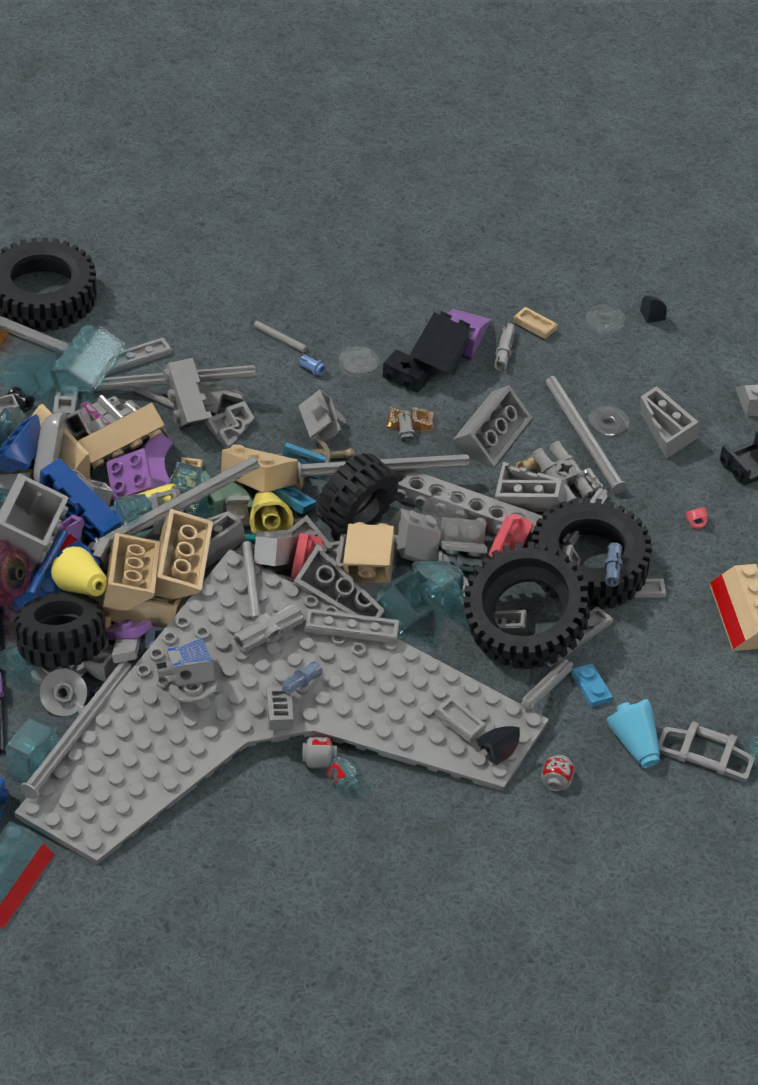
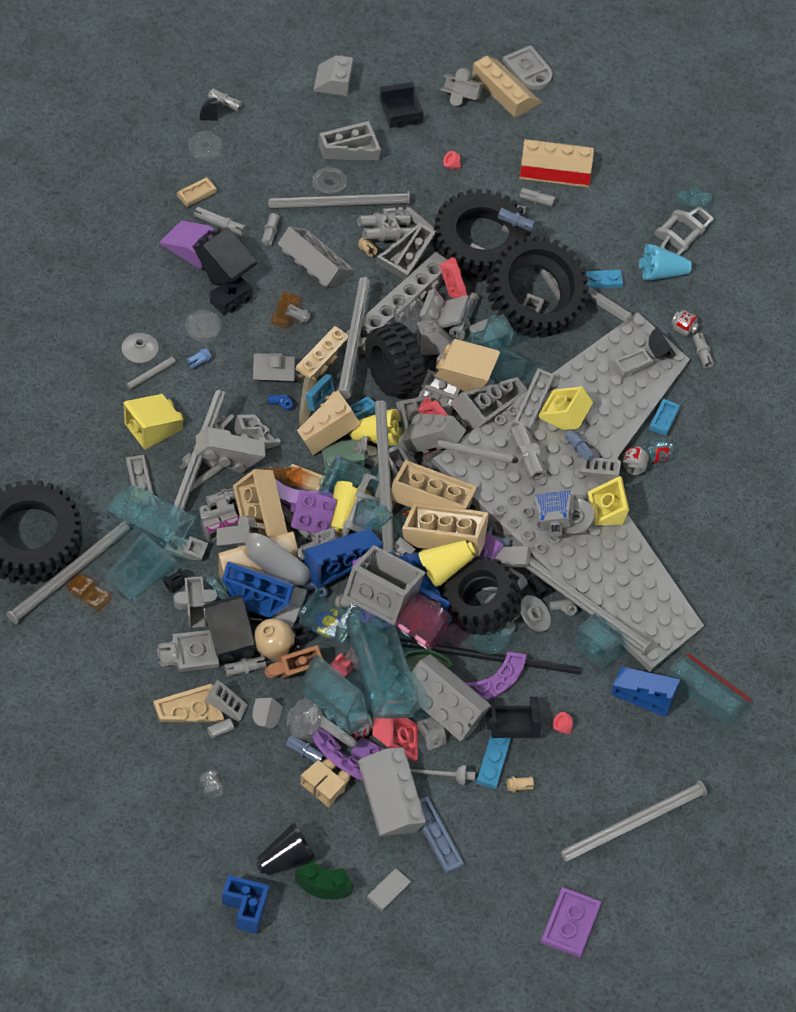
camera: 75 degrees left, 10 degrees up
(180, 450) = (288, 475): none -> clear orange slope
(212, 339) = (152, 419): none -> light yellow slope
(228, 723) = (609, 503): none -> light yellow slope
(285, 436) = (282, 400): none -> blue arm
(311, 324) = (140, 353): none -> light grey dish
(342, 444) = (323, 354): none -> tan bracket
(349, 657) = (566, 408): none -> light yellow slope
(401, 775) = (664, 417): none -> dark azure plate
(518, 387) = (270, 229): none -> light grey axle
(525, 800) = (703, 350): none -> light grey pin
(675, 320) = (225, 100): none -> light grey axle
(685, 602) = (537, 197): none -> light grey axle

